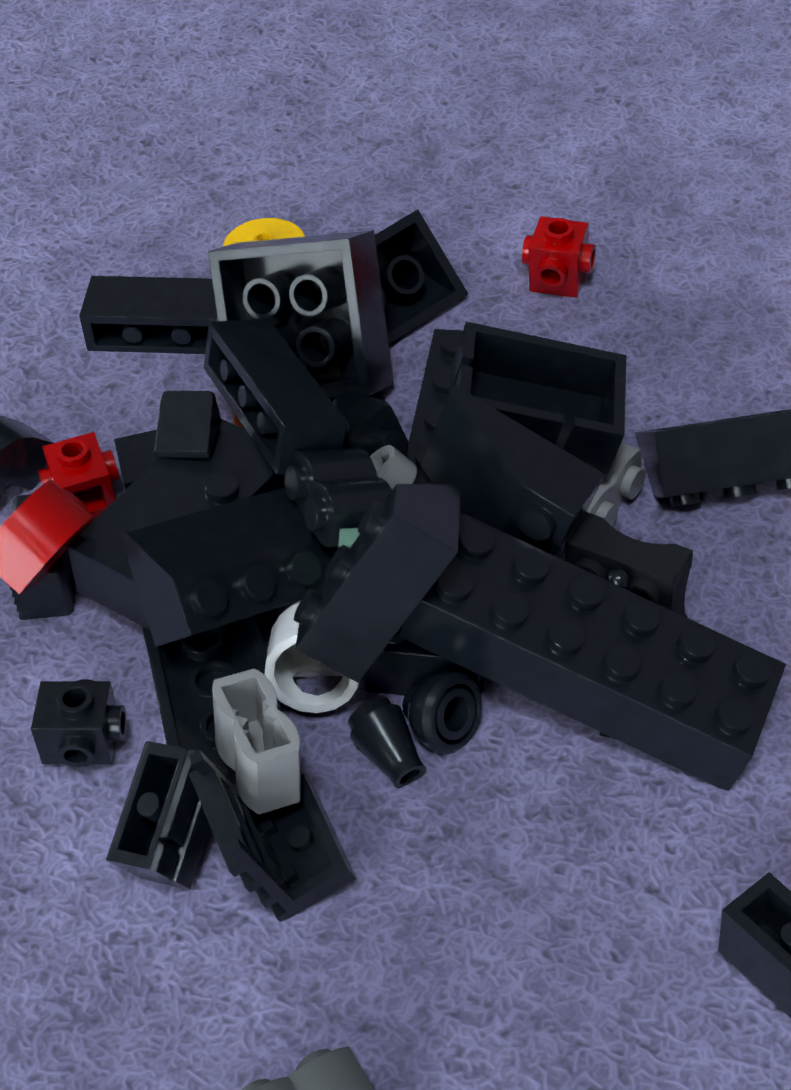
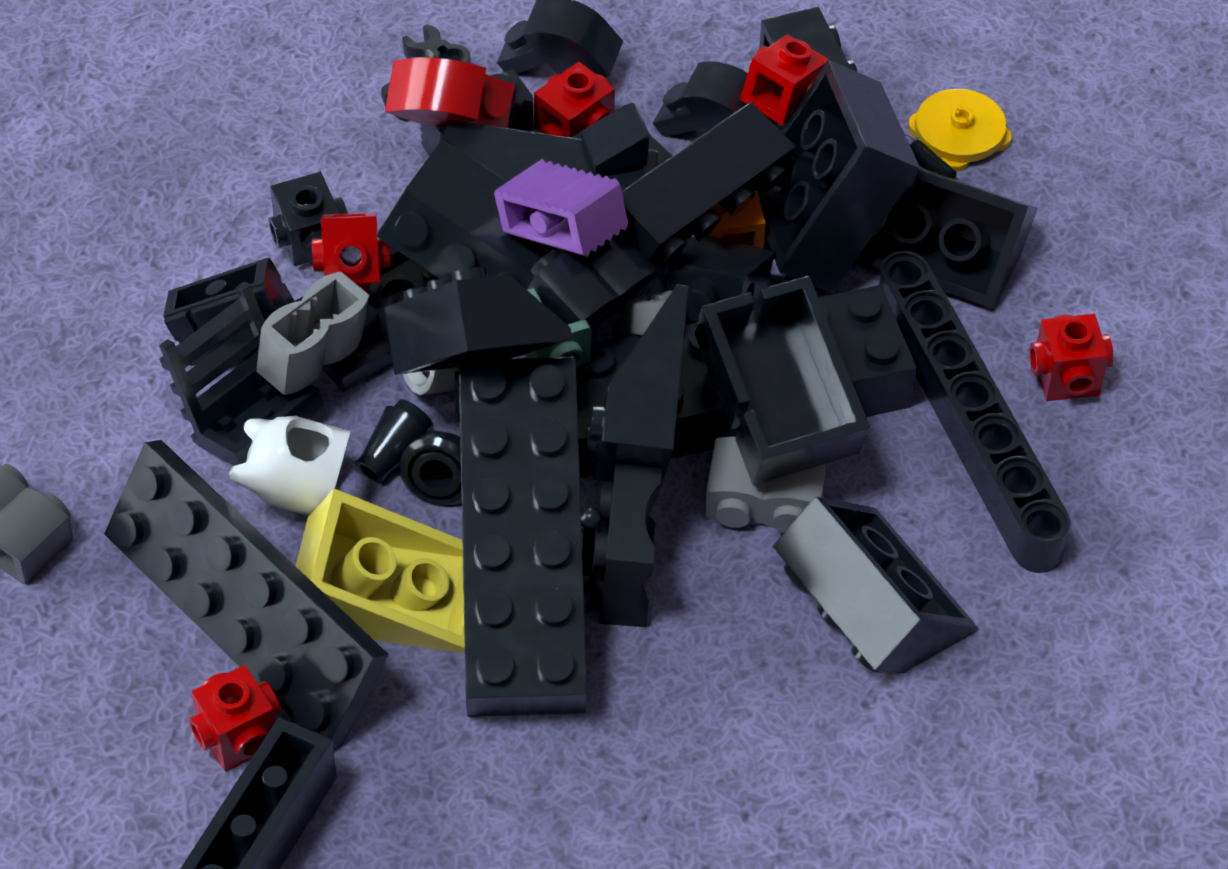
camera: 60 degrees right, 5 degrees up
(144, 372) = (704, 101): none -> black brick
(164, 681) = (355, 231): none -> red brick
(179, 304) = (781, 77): none -> red brick
(274, 466) = (562, 207): none -> medium lavender brick
(395, 829) = (291, 461): none -> white piece
(529, 910) = (245, 593): none -> black plate
(550, 800) = (386, 572): none -> light yellow slope
(644, 330) = (976, 416): none -> black beam
(674, 968) = (233, 715): none -> red brick

